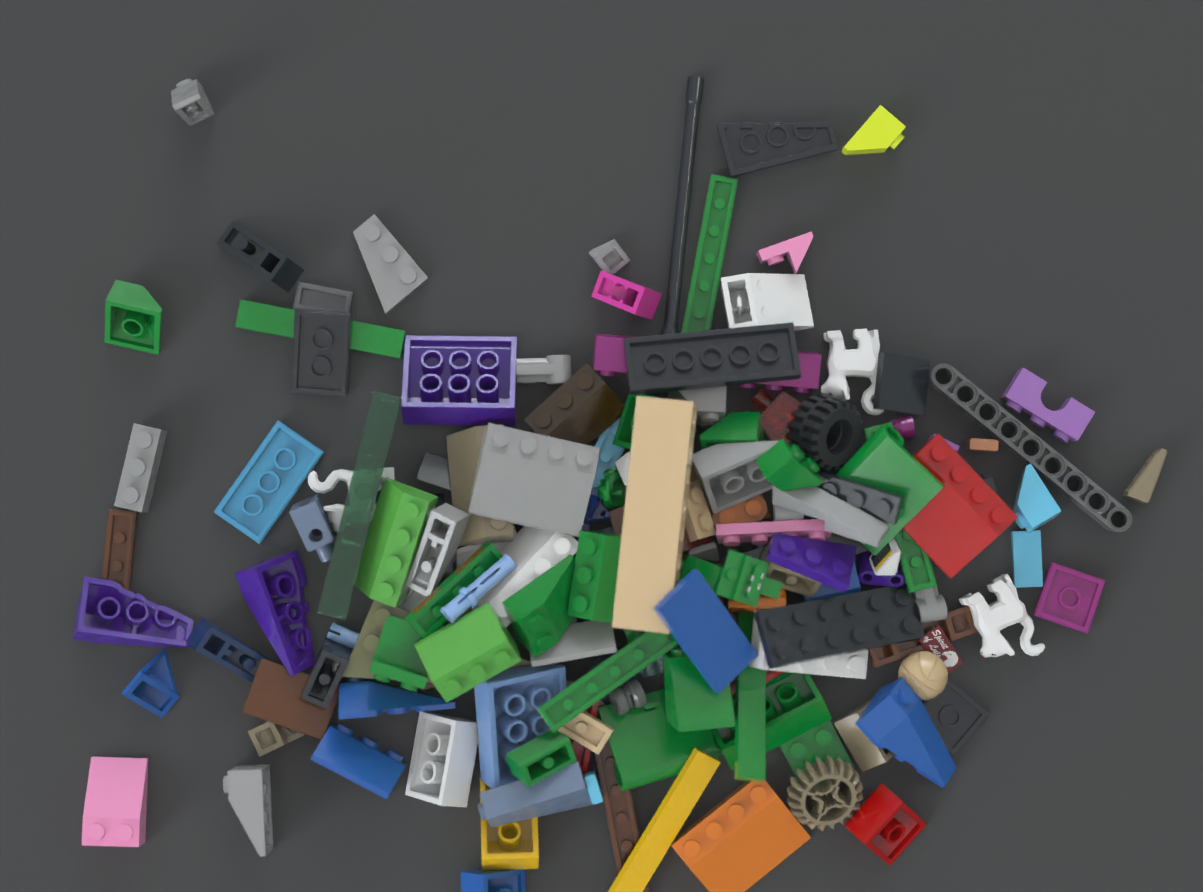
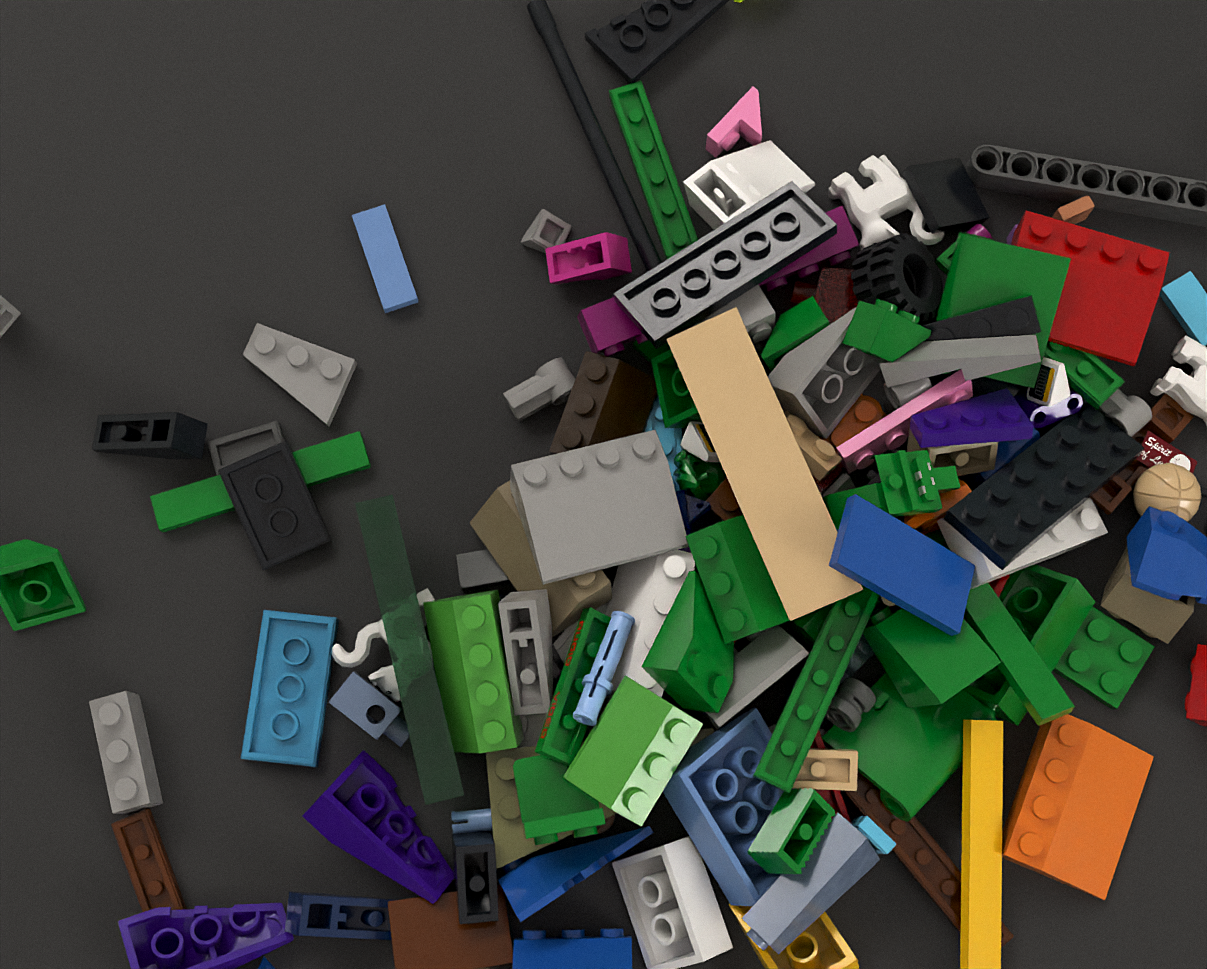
camera: 25 degrees left, 10 degrees down
(459, 380) = (450, 452): dark purple slope -> none
(487, 213) = (385, 258): none -> medium blue tile
(822, 783) = (1142, 691): dark tan gear -> none
(1025, 396) = (1085, 137): medium lavender arch -> none
(1033, 501) = (1167, 233): medium azure slope -> none

